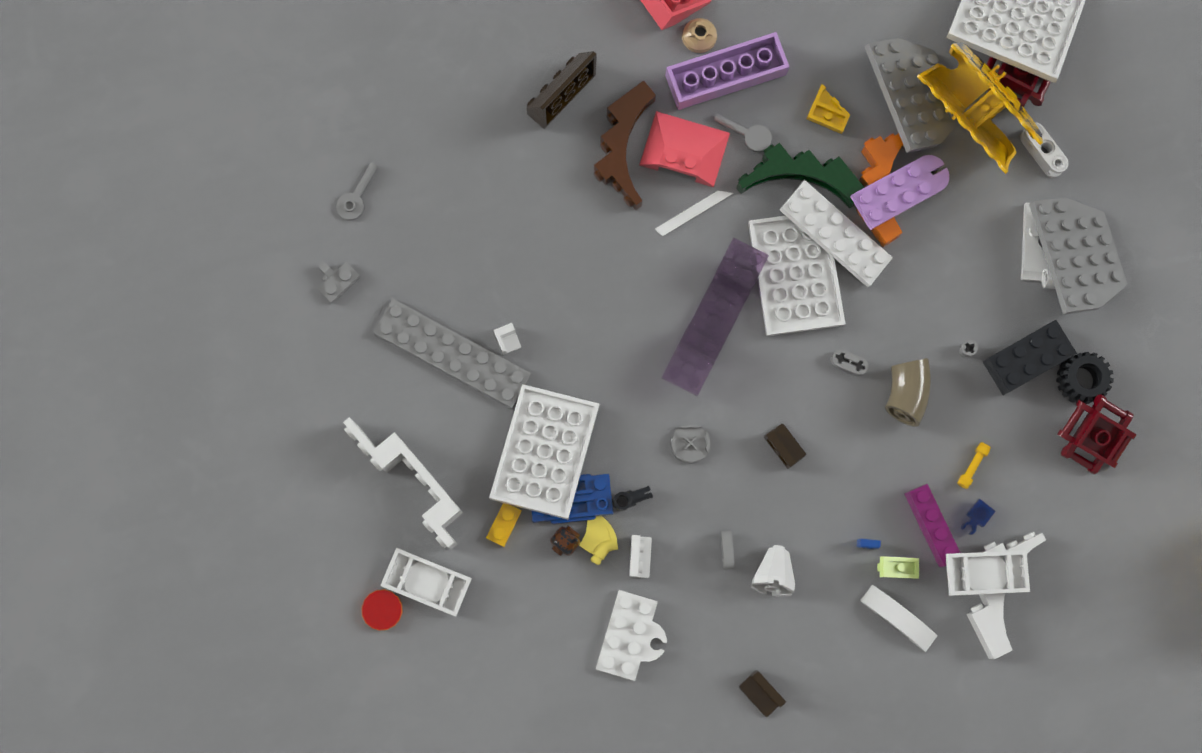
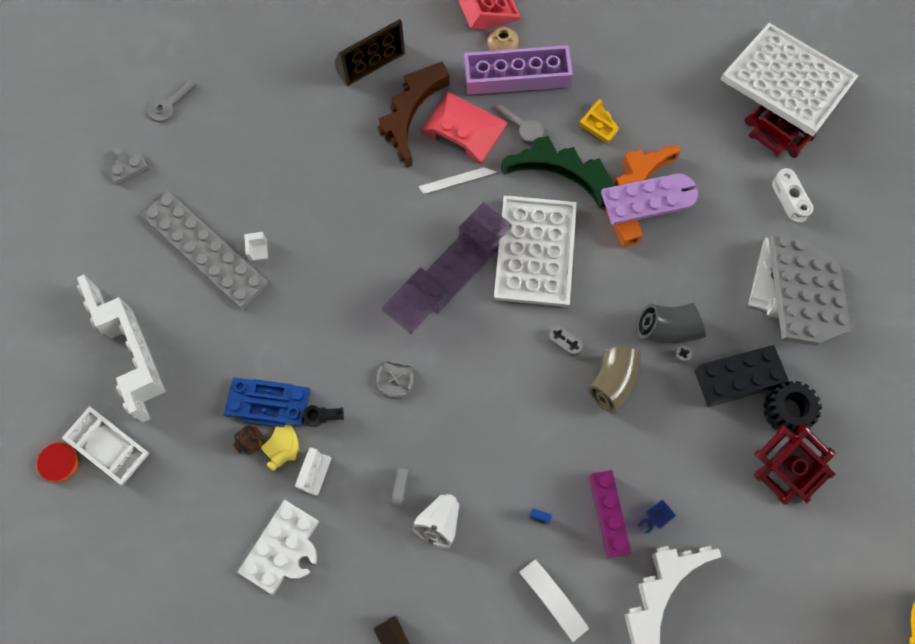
camera: 20 degrees right, 10 degrees down
(503, 524) = (198, 411): yellow plate -> none
(544, 452) = (254, 353): white plate -> none
(785, 446) = (484, 403): dark brown panel -> none
(836, 233) = (580, 223): white plate -> none
(898, 567) = (565, 547): yellowish green hinge -> none
(914, 108) = (681, 120): light grey plate -> none
(950, 321) = (670, 324): none -> dark grey brick
(965, 84) = (737, 128): yellow animal -> none
(981, 451) = (653, 477): yellow bar -> none
(987, 572) = (653, 574): white slope -> none

